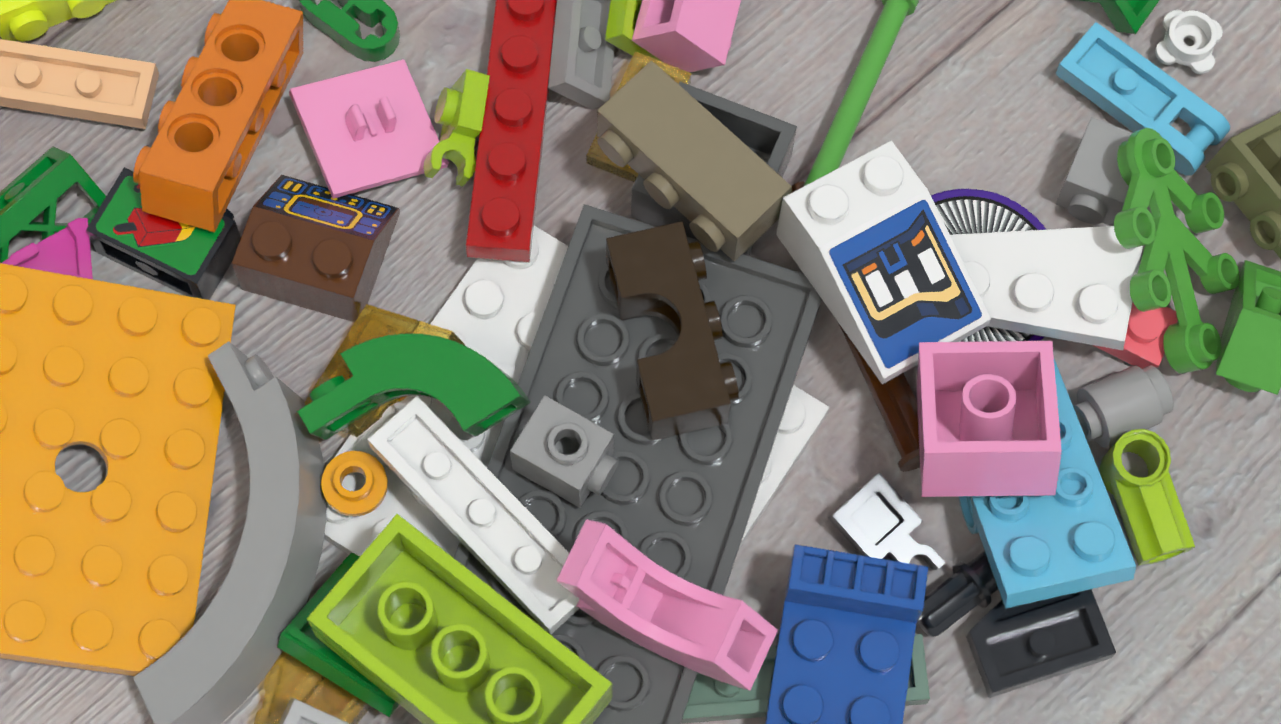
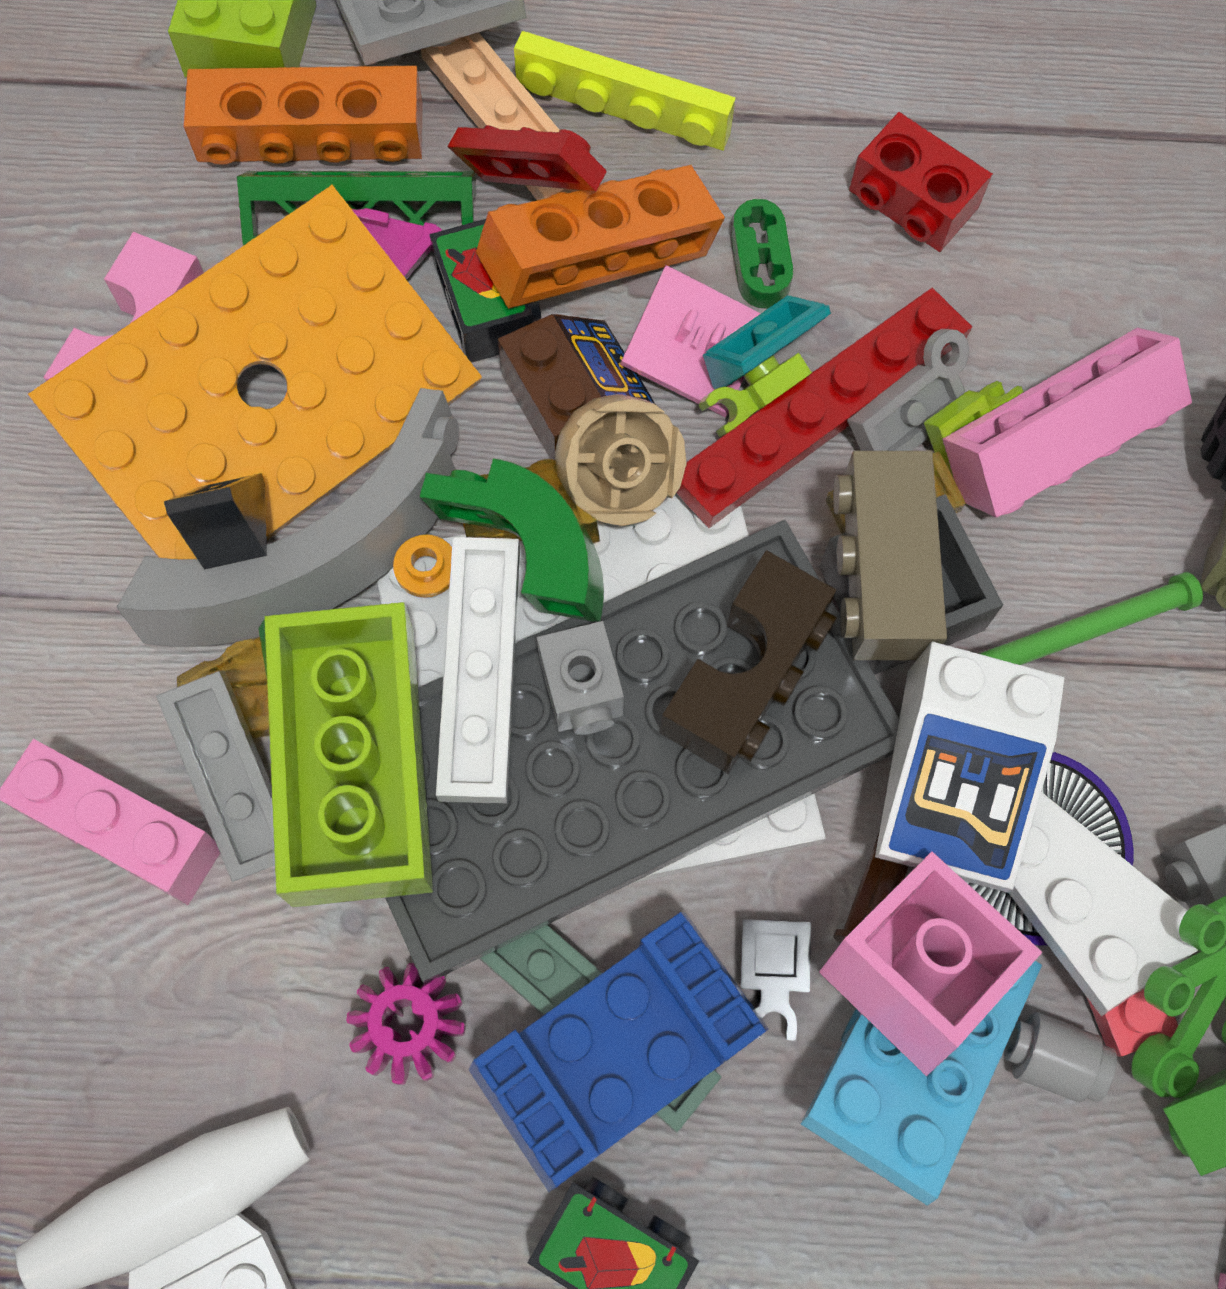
camera: 45 degrees right, 0 degrees up
(107, 99) = (529, 157): none -> red plate
(176, 587) = (223, 520): none -> black slope
(422, 269) = (620, 458): none -> tan cylinder
(426, 82) = (762, 338): none -> teal slope
(664, 611) = (530, 861): bright pink arch -> none
(959, 594) = (778, 1074): black axle -> none
(1038, 641) = (808, 1175): black wing -> none
(1147, 503) = (1003, 1158): lime piece -> none

